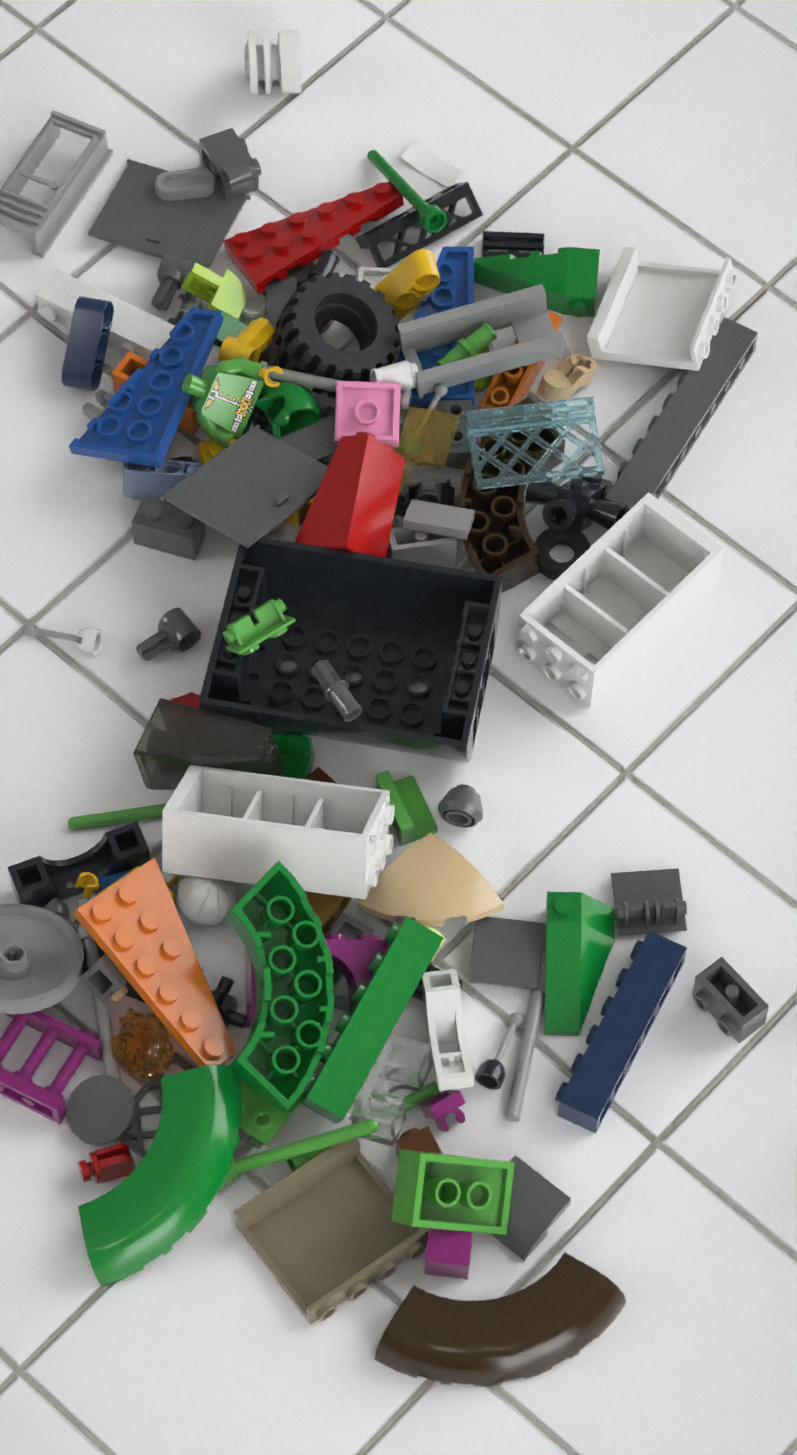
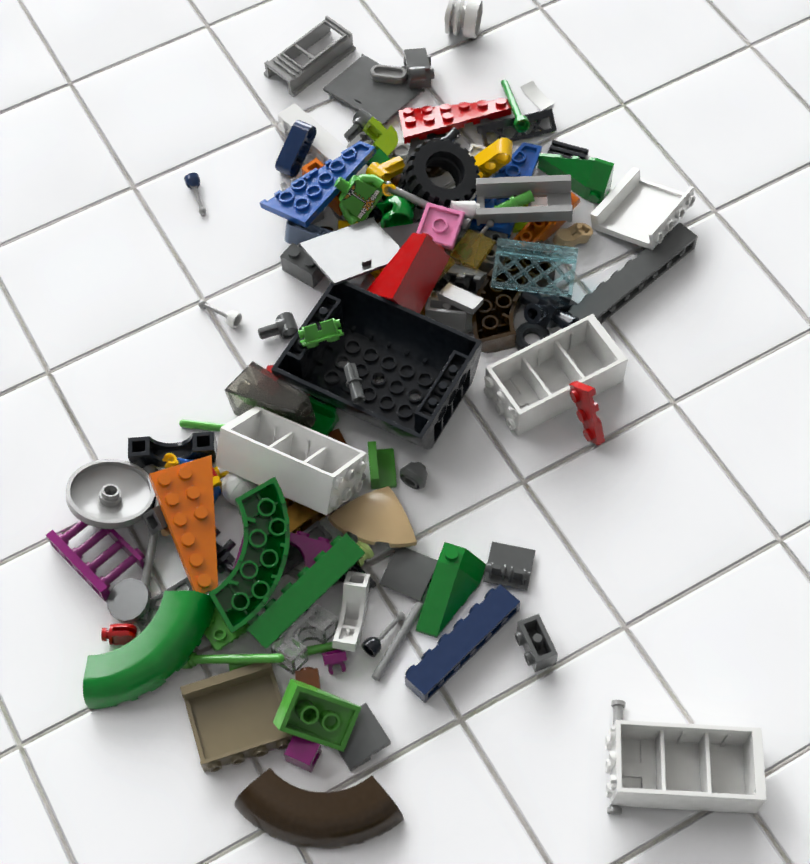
camera: 20 degrees right, 0 degrees up
(142, 1045) = (167, 568): clear orange hair -> none
(690, 643) = (587, 408): none -> red wing

